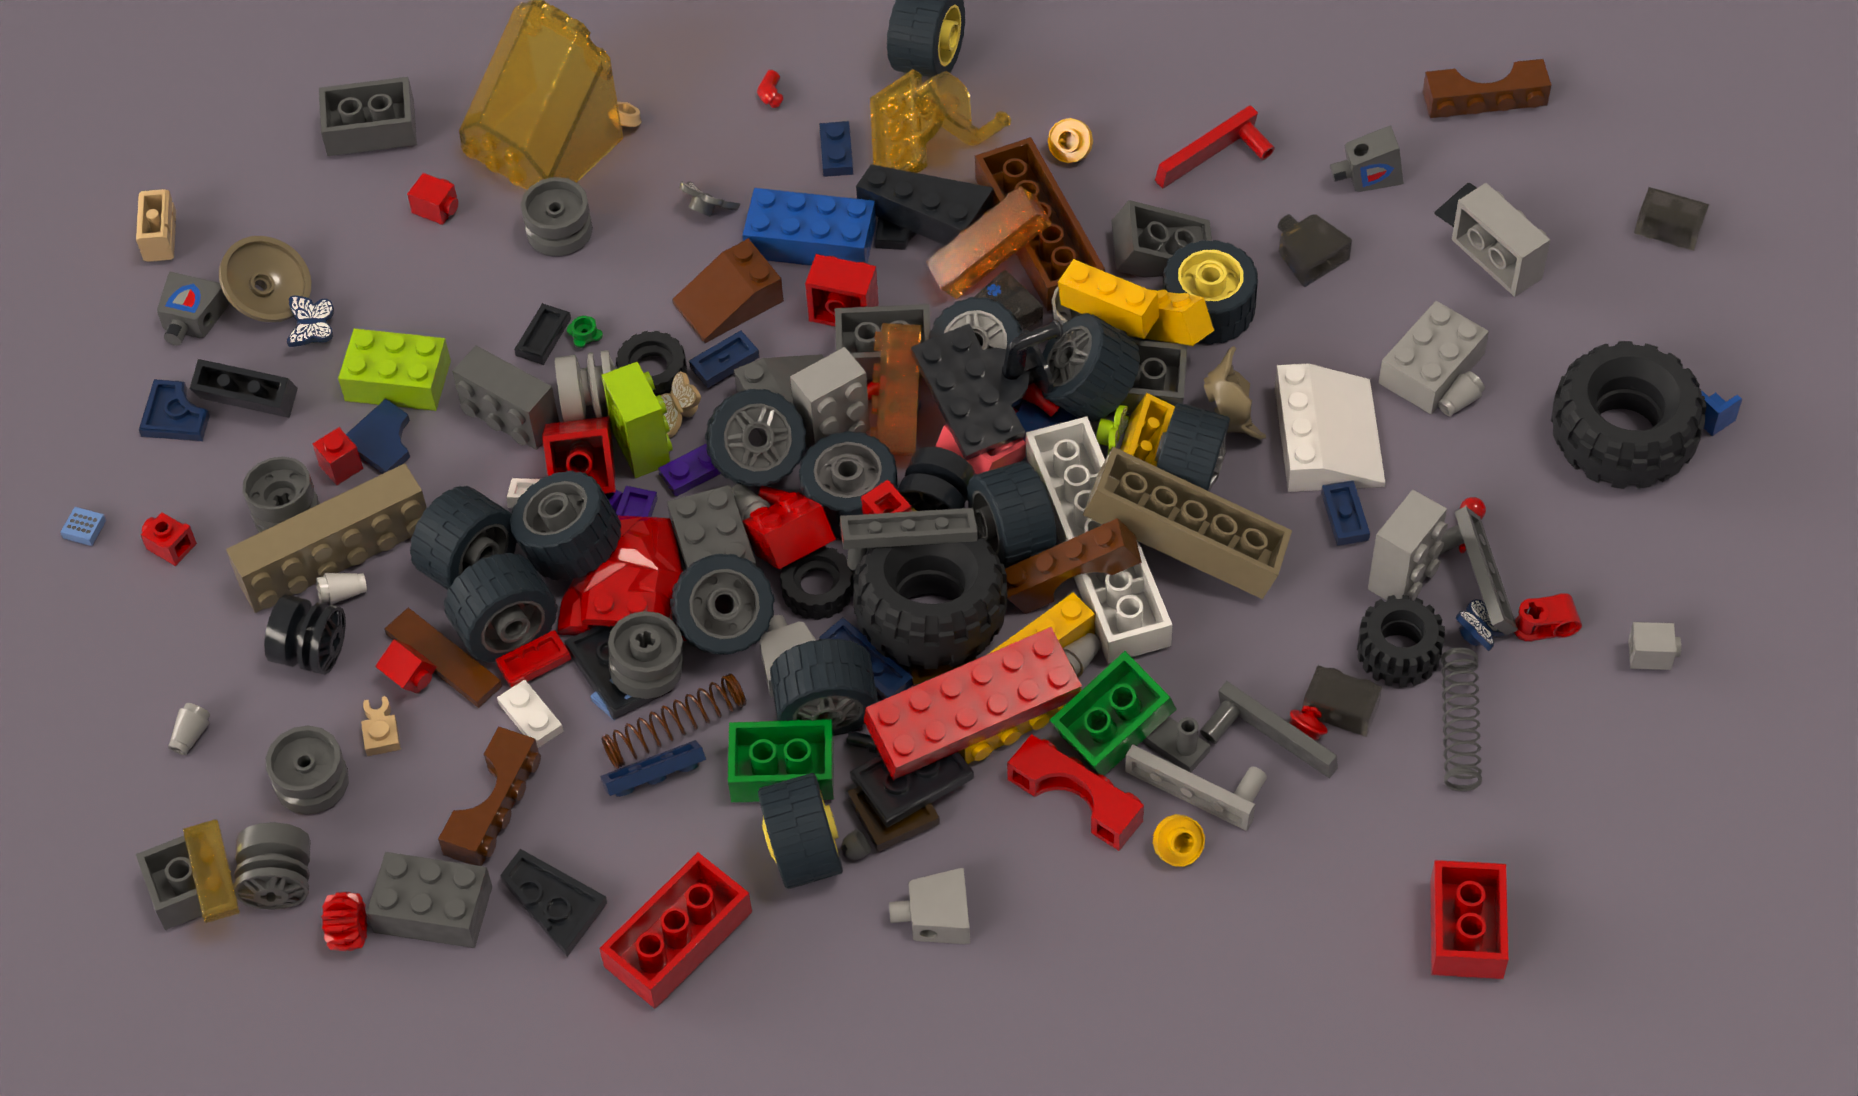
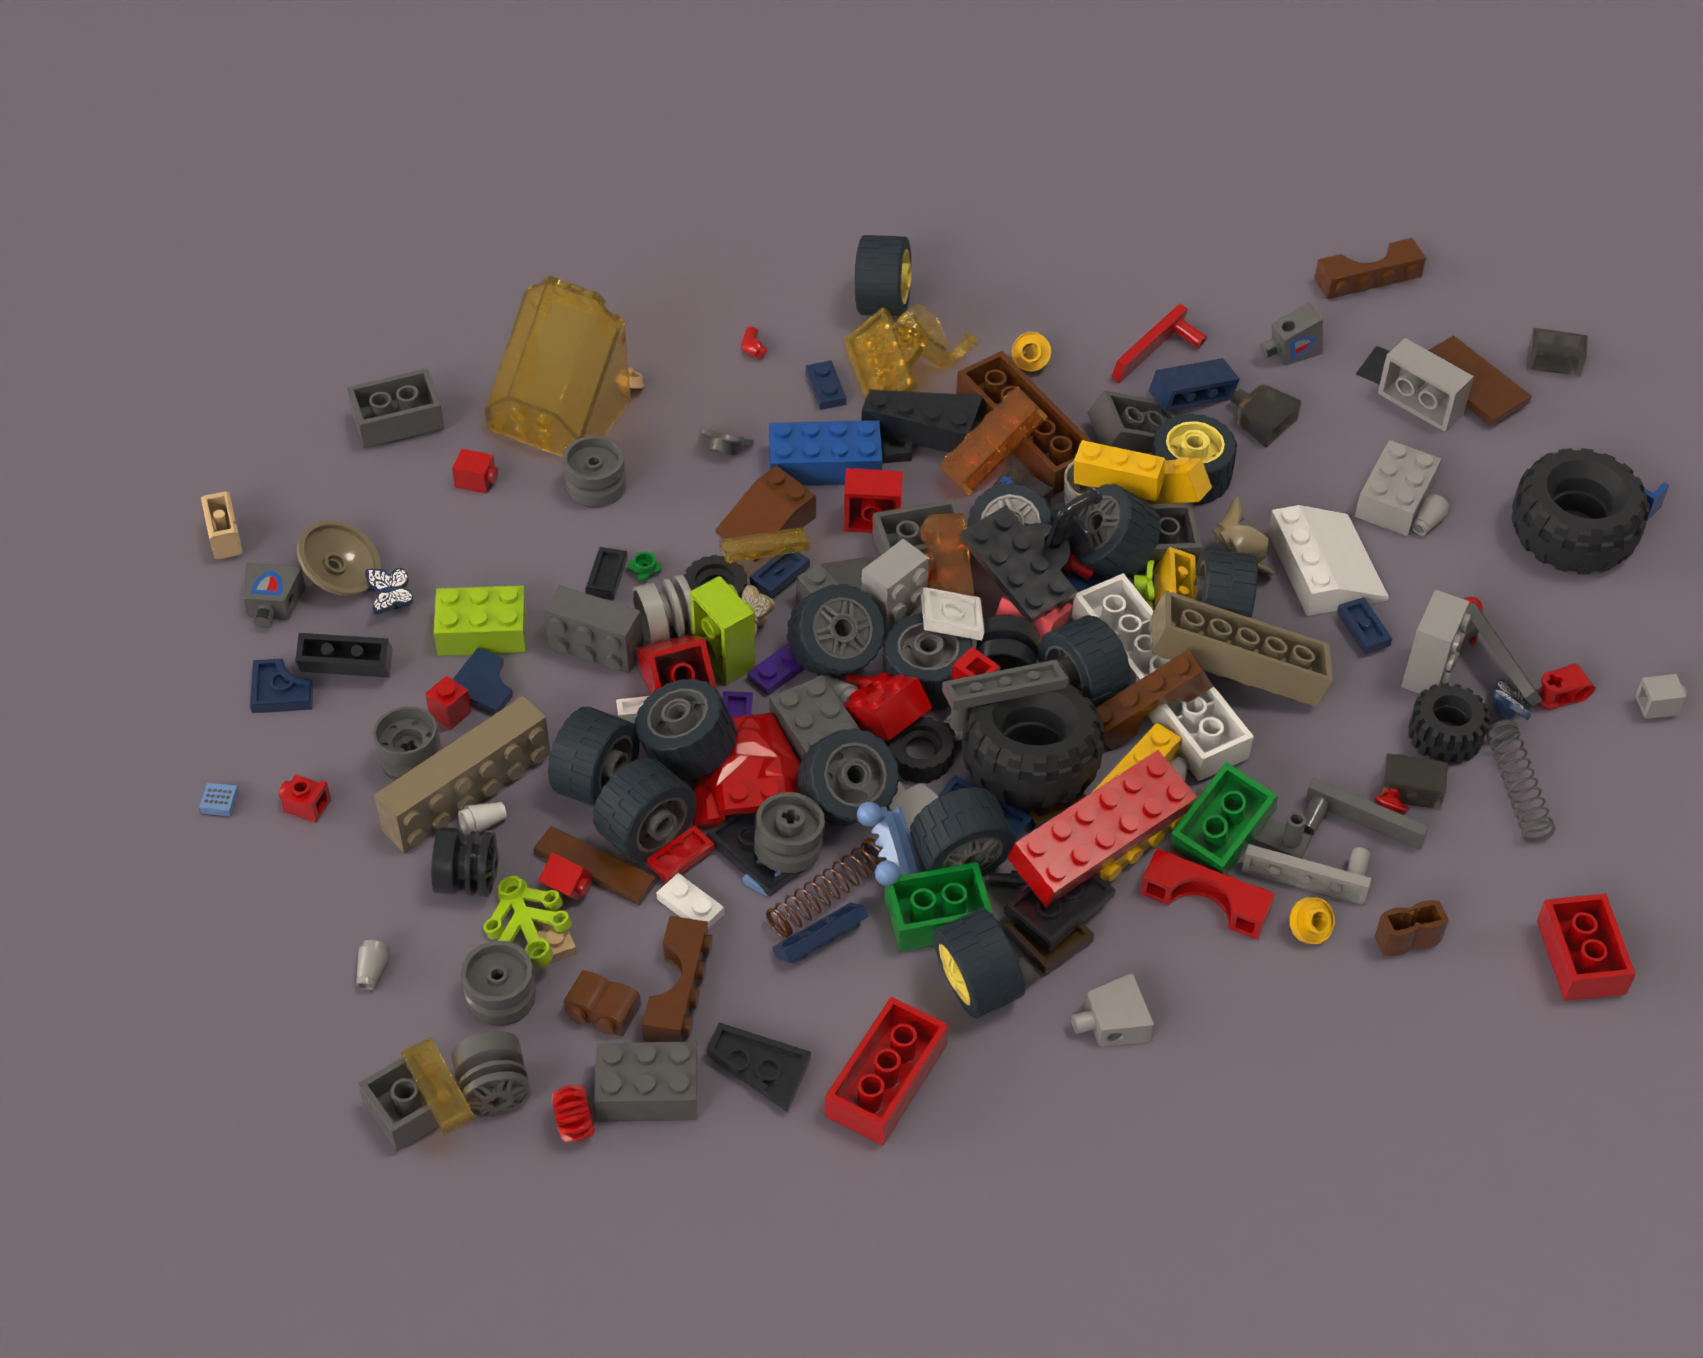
camera: 15 degrees left, 5 degrees down
(349, 675) = (512, 893): none -> lime plant
(408, 809) = (602, 1003): none -> reddish brown brick
(712, 327) = (764, 544): none -> clear yellow tile
(752, 682) = (894, 839): none -> medium blue gear
(882, 437) = (952, 613): none -> white tile
(1238, 203) = (1193, 384): none -> dark blue brick
(1289, 866) = (1411, 928): none -> reddish brown brick
(1575, 252) = (1491, 392): none -> reddish brown tile

